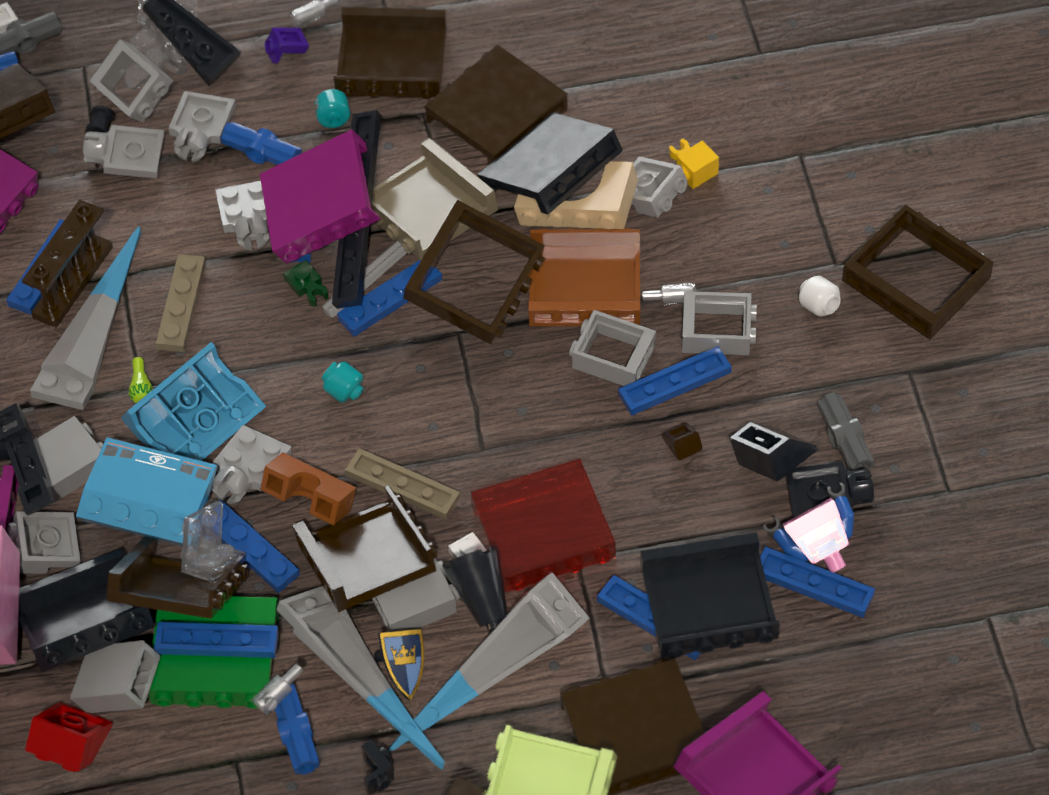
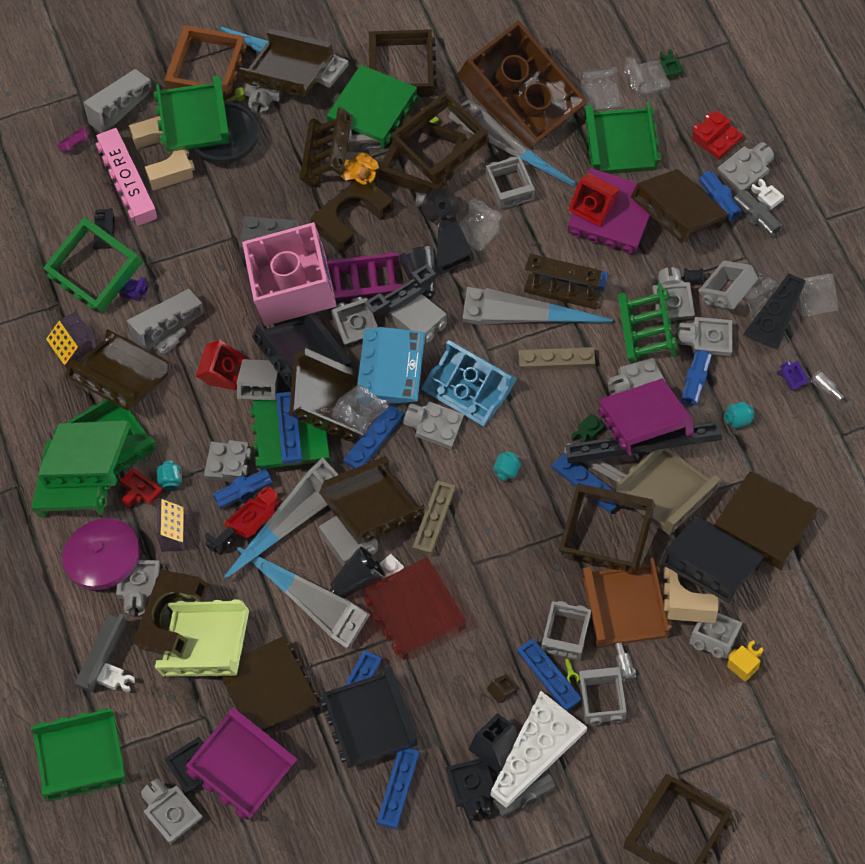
camera: 80 degrees right, 5 degrees up
(140, 385) = (484, 348): lime piece -> none
(176, 205) = (629, 321): none -> green fence
(239, 746) = (227, 460): none -> light grey plate
(275, 690) = (258, 468): clear piece -> none
(291, 477) = (425, 448): dark orange arch -> none
(345, 713) = (254, 513): none -> red plate
(391, 52) = (799, 445): dark brown panel -> none
(403, 659) = (297, 540): shield -> none
(682, 352) = (570, 671): none -> lime hand
(777, 397) = (540, 743): none -> white wing
(818, 531) = (433, 783): torso -> none
(819, 296) = (640, 762): white head -> none

